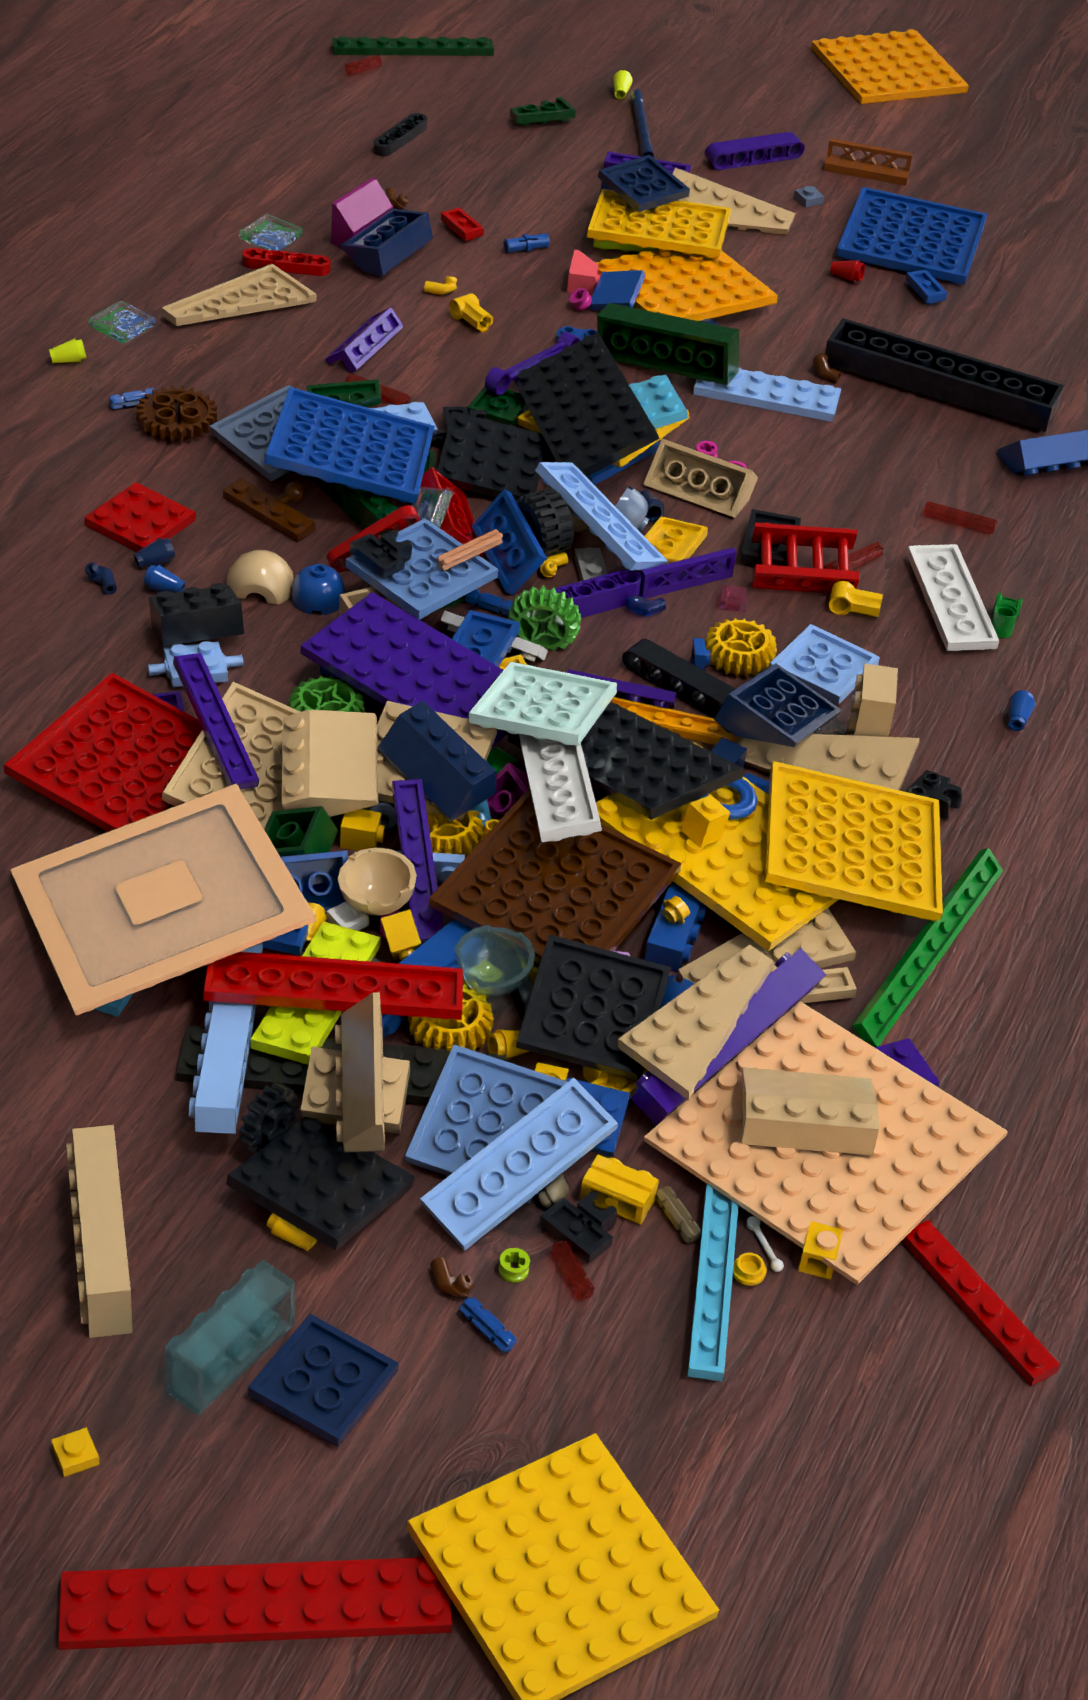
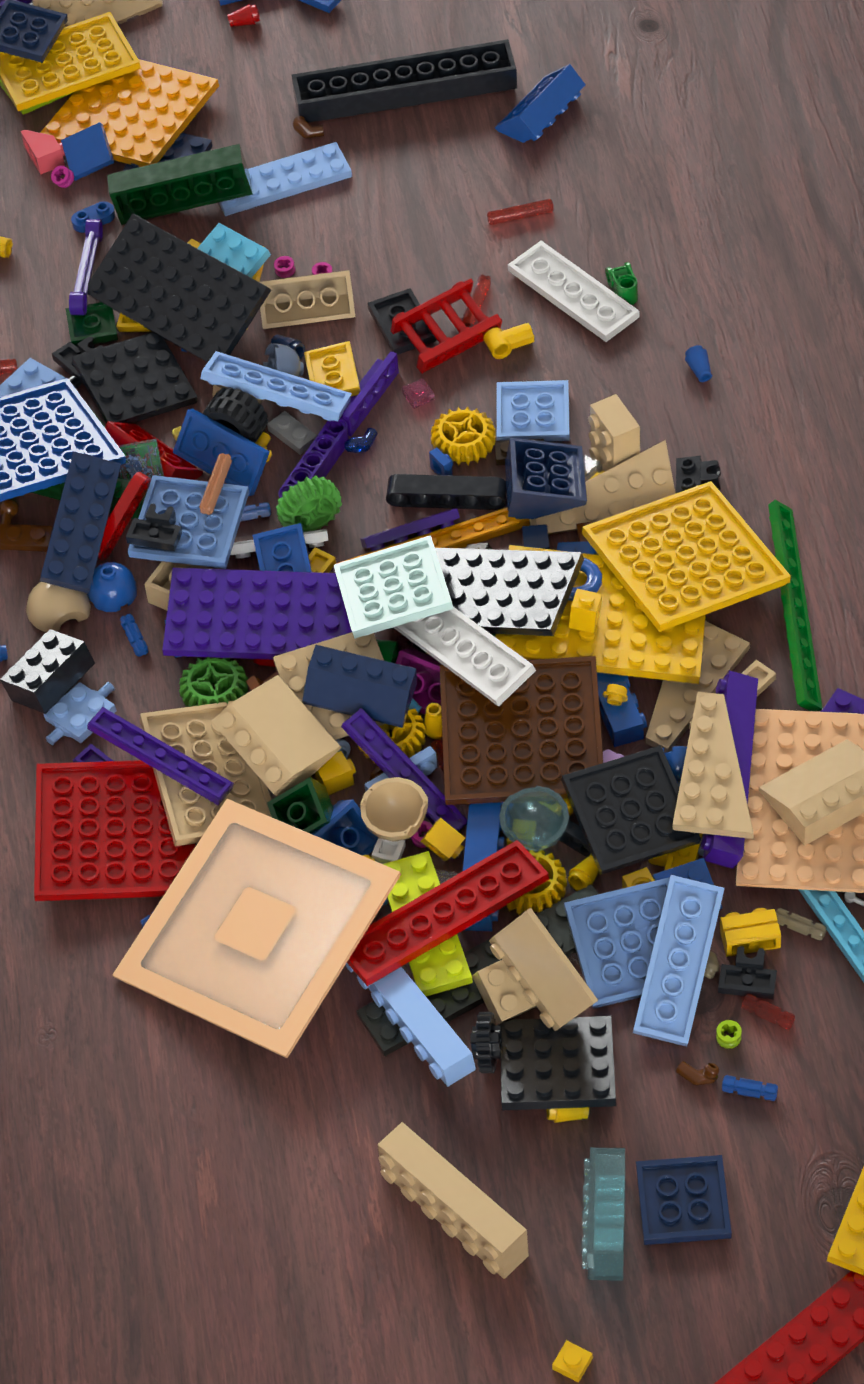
camera: 25 degrees left, 10 degrees up
(300, 634) = (134, 635): none -> blue axle
(329, 519) = (80, 522): none -> dark blue plate

